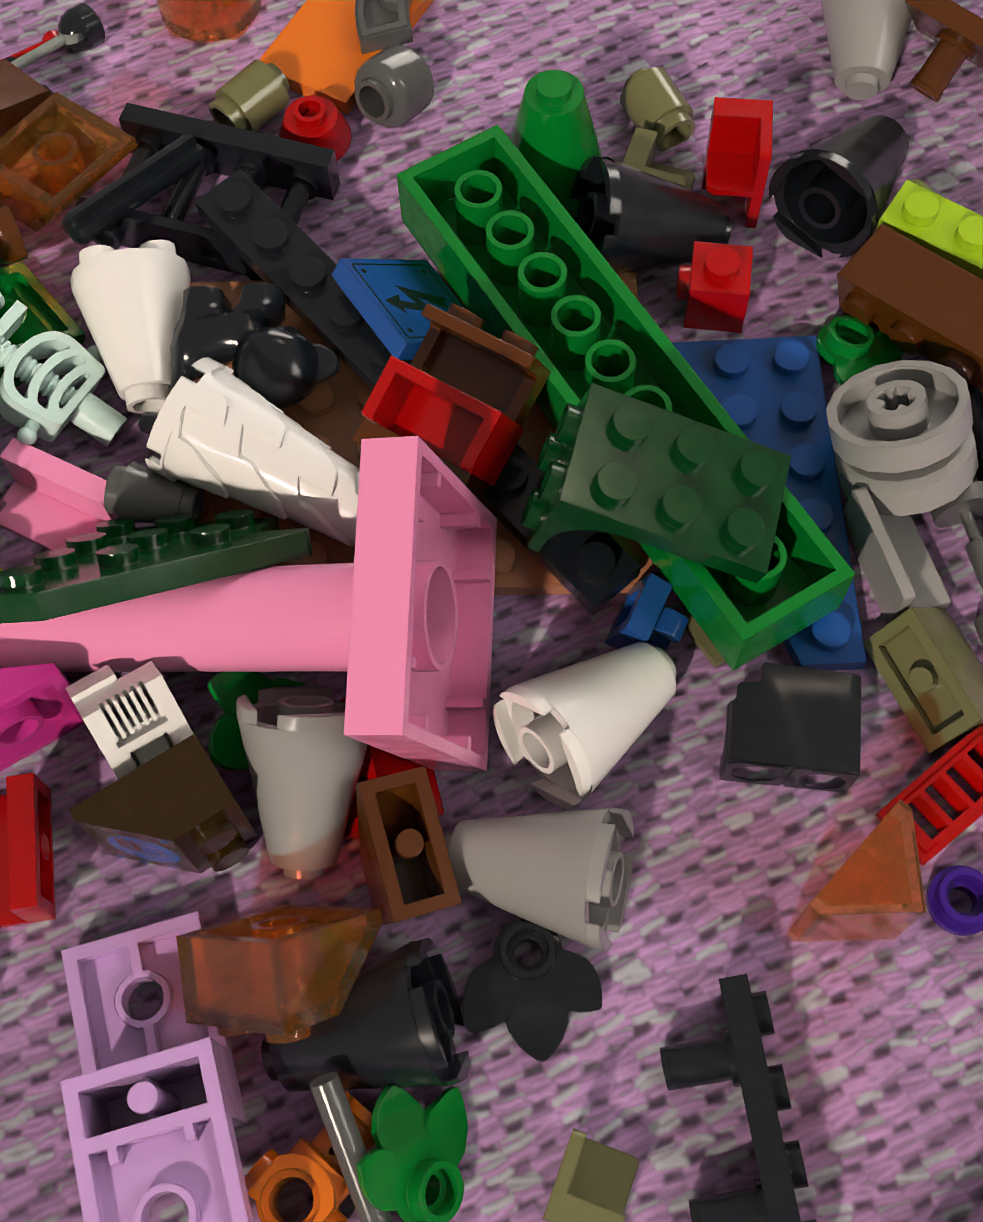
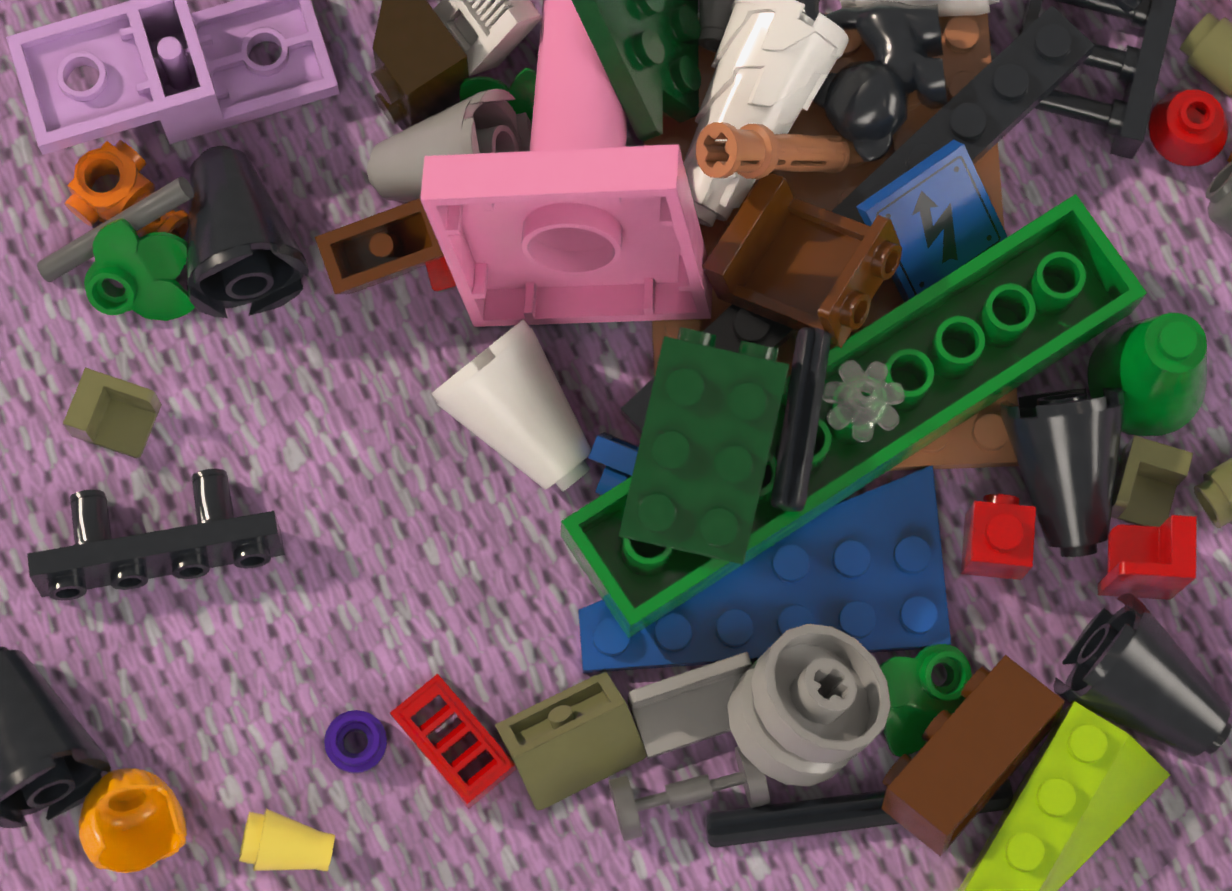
camera: 80 degrees right, 10 degrees up
(275, 969) = (282, 147): clear orange slope -> none
(333, 437) = (757, 151): none -> nougat pin
(445, 418) = (781, 250): red panel -> none
(532, 998) = (269, 367): black plate -> none
(549, 869) = (372, 375): light grey cone -> none
(558, 388) = (801, 419): none -> black axle
(607, 350) = (859, 409): none -> clear plant
(795, 720) = (509, 594): black piece -> none
(874, 890) = (351, 640): clear orange slope -> none

